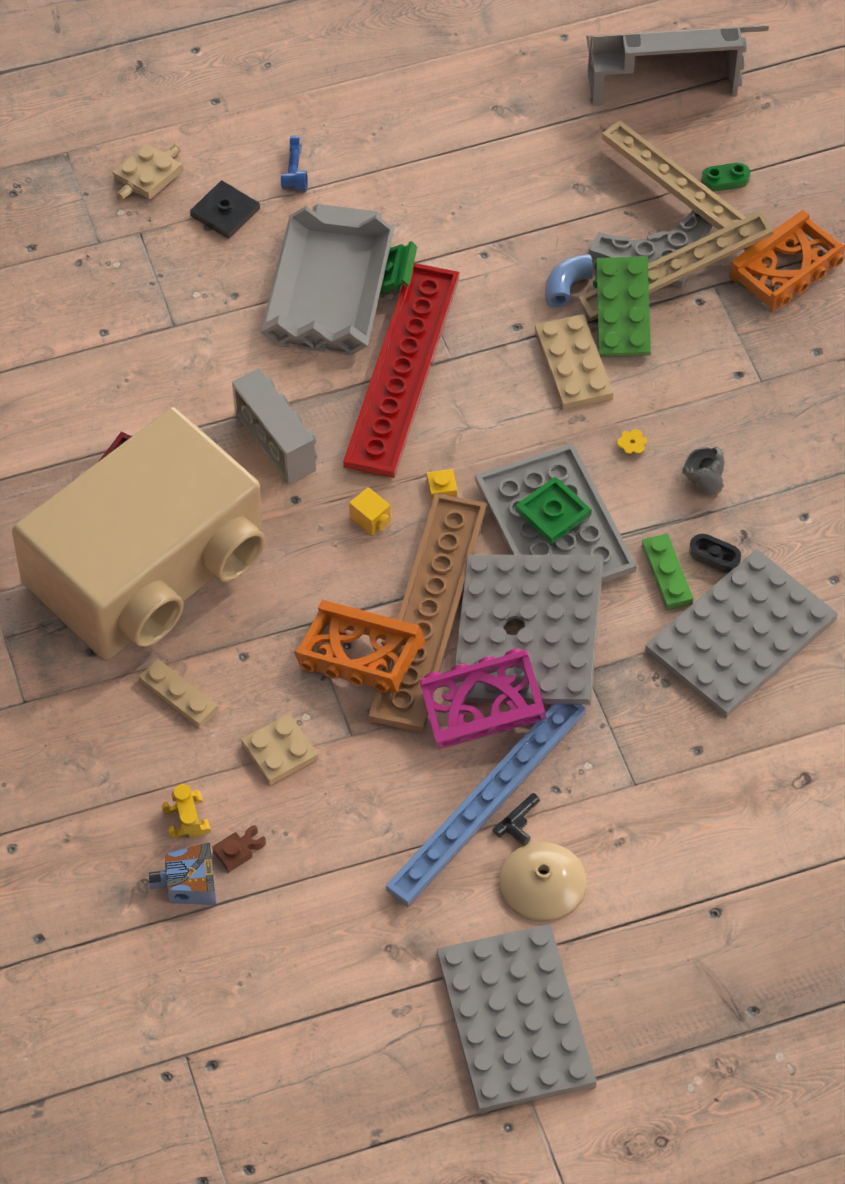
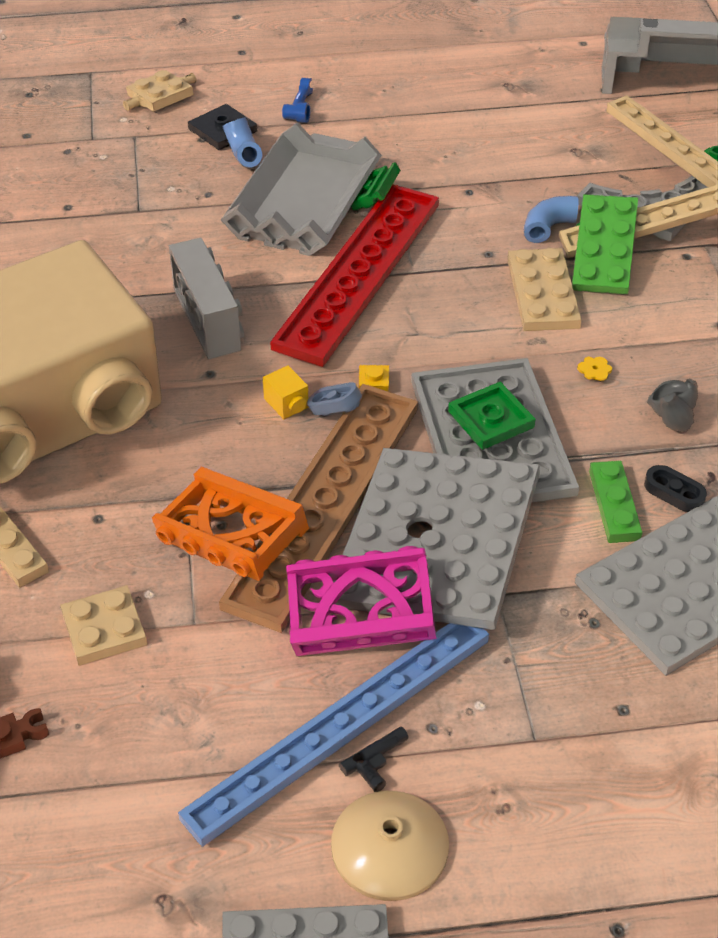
camera: 10 degrees right, 10 degrees down
(255, 233) = (243, 143): none -> medium blue cylinder
(415, 513) = (335, 399): none -> sand blue plate

